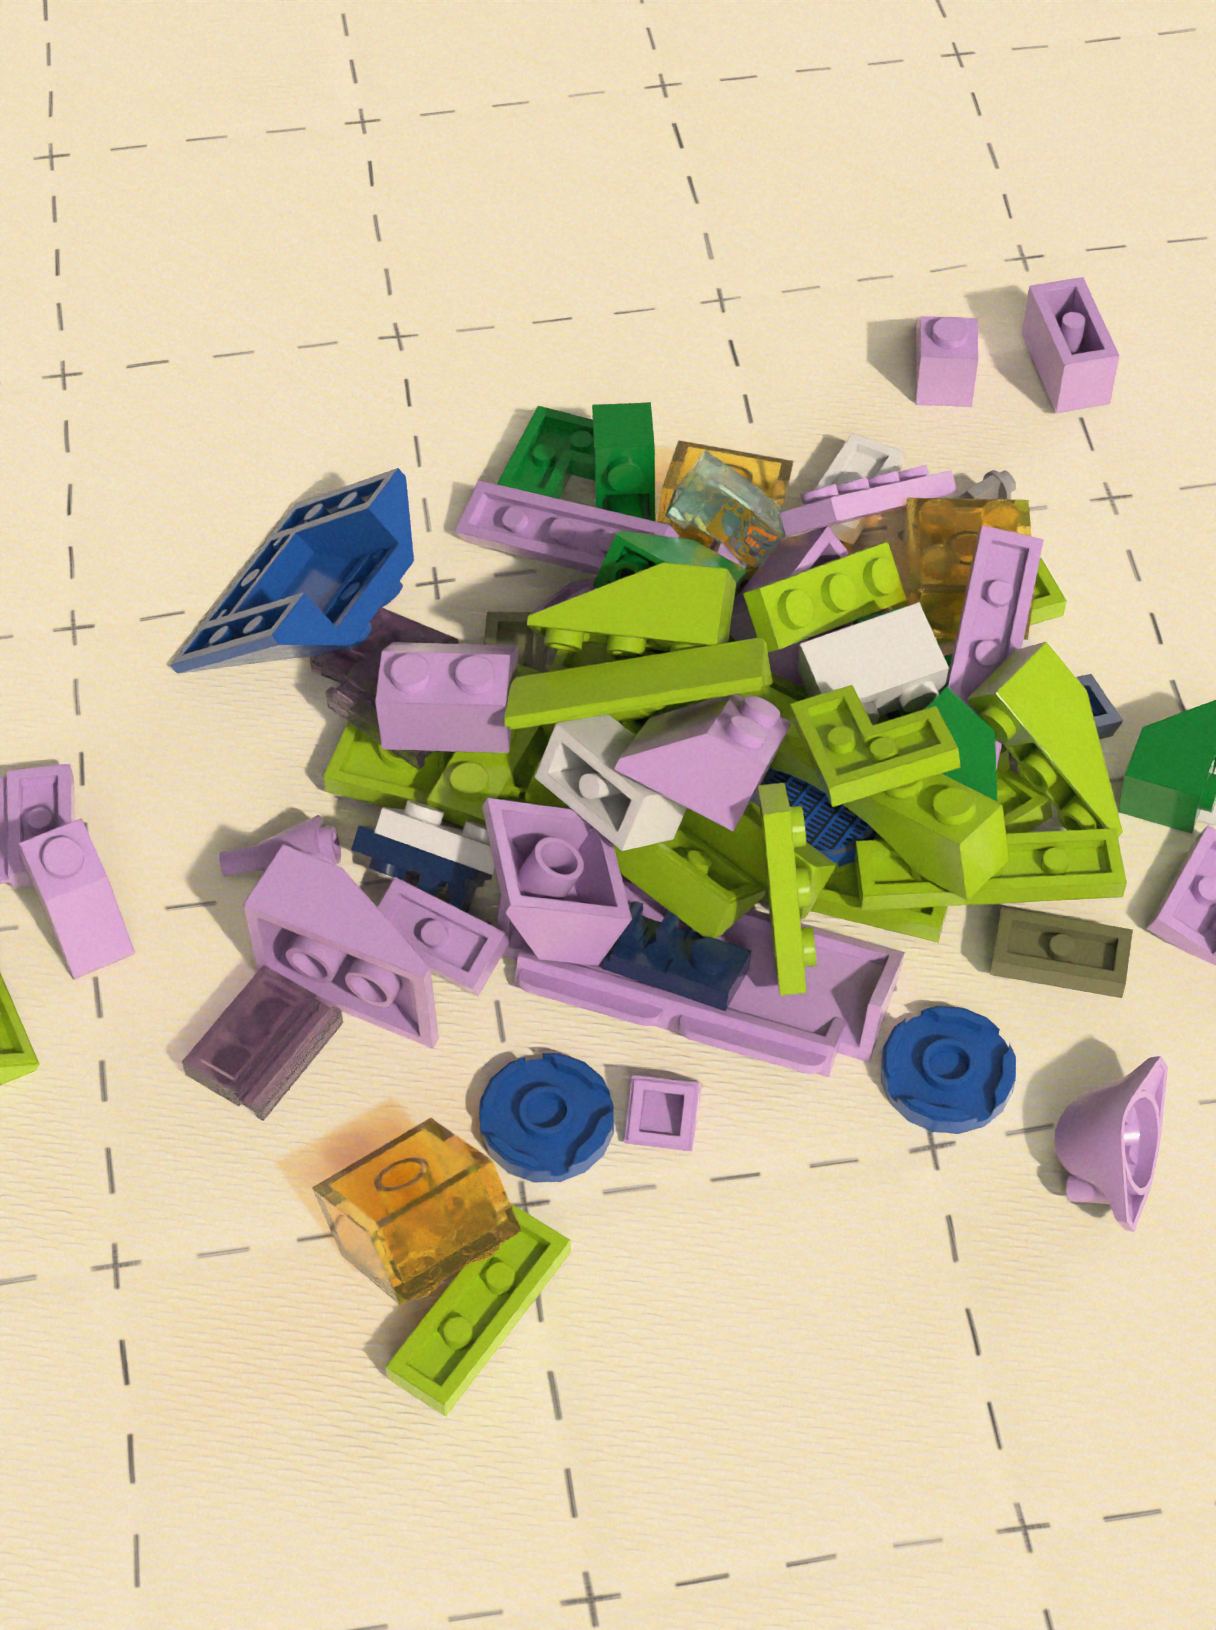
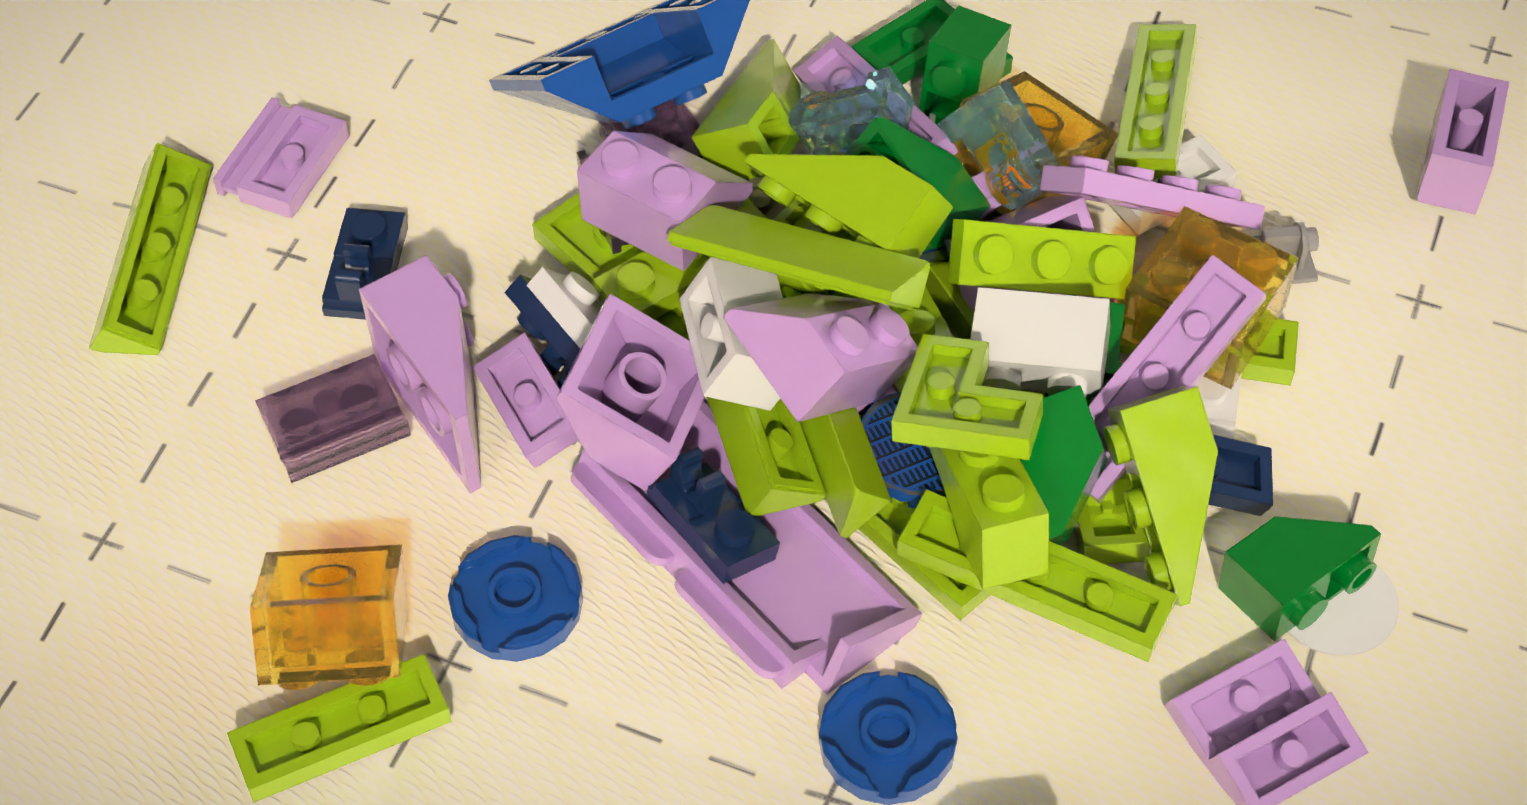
camera: 30 degrees right, 0 degrees up
(76, 898) = (266, 227): lavender slope -> none
(180, 889) = (364, 252): none -> dark blue plate
(305, 837) = (480, 274): lavender cone -> none
(466, 590) = (752, 115): none -> lime slope
(564, 549) = (836, 120): none -> clear light blue leg
(662, 1112) = (614, 643): lavender slope -> none
(786, 887) = (819, 495): lime plate -> none
(797, 416) = (1157, 98): none -> lime plate
(946, 360) = (1338, 107): lavender slope -> none
(1062, 952) = (1063, 685): olive plate -> none

